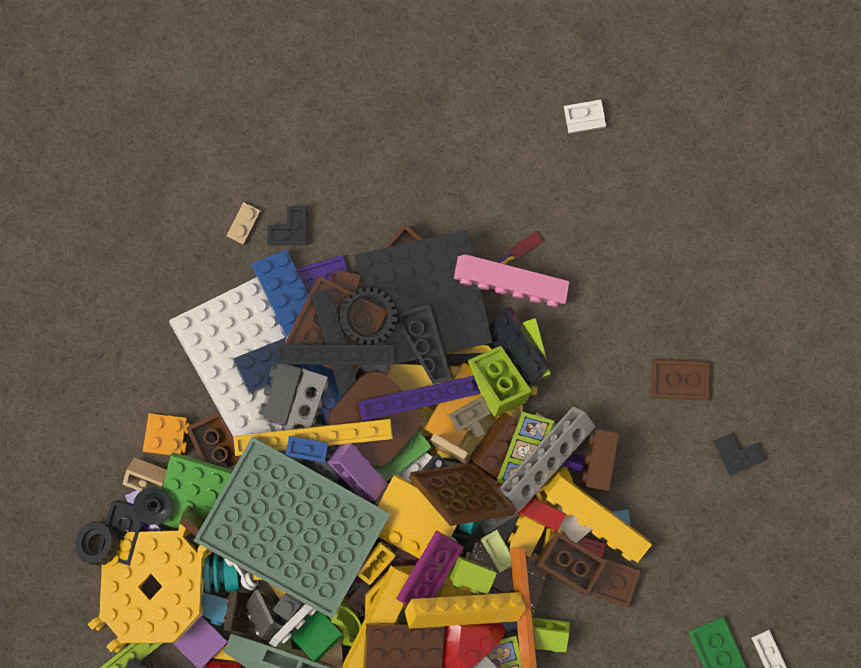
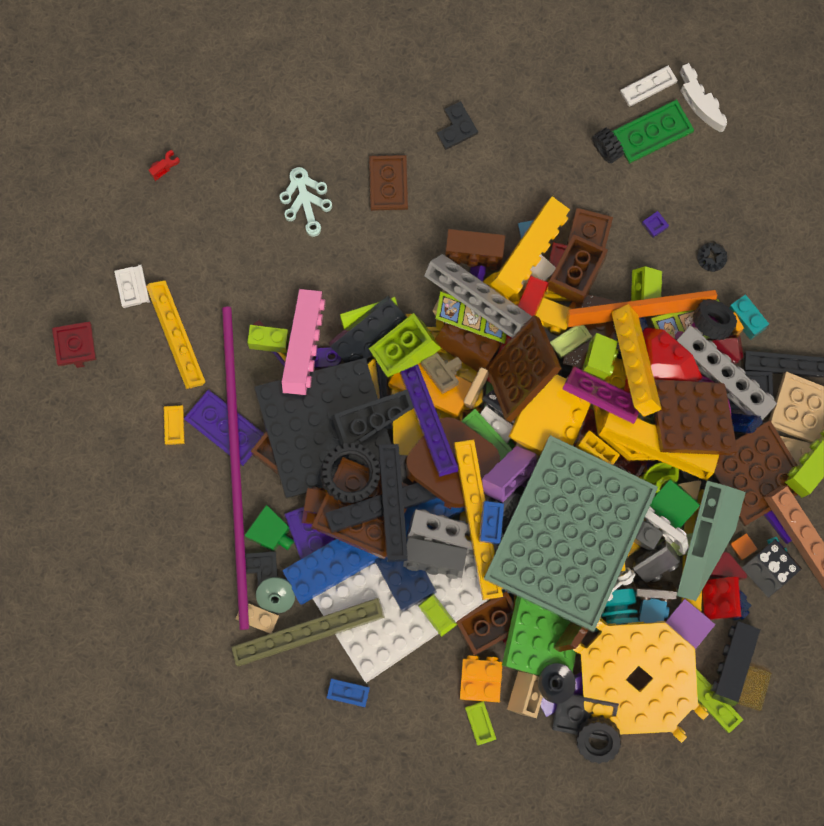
camera: 90 degrees left, 5 degrees down
(124, 431) = (480, 723): none -> lime tile
(163, 306) = (348, 693): none -> blue plate
(223, 270) = (308, 632): none -> olive tile
(225, 392) = (437, 615): none -> lime tile
(268, 242) = (275, 587): none -> sand green dish
(326, 239) = (269, 531): none -> green torso
(397, 209) = (235, 469): none -> magenta piece
(434, 201) = (211, 420): none -> dark purple tile
(440, 152) = (174, 425): none -> yellow tile
(497, 301) = (322, 359): none -> dark purple plate
(519, 247) = (268, 339): none -> lime brick
(525, 57) = (74, 344): none -> dark red bracket
(531, 157) = (175, 334): none -> yellow plate
(618, 651) = (655, 224): none -> dark purple plate
(668, 293) = (305, 197): none -> light aqua plant
(705, 608) = (608, 145): none -> black tyre
(707, 149) = (160, 168): none -> red plate

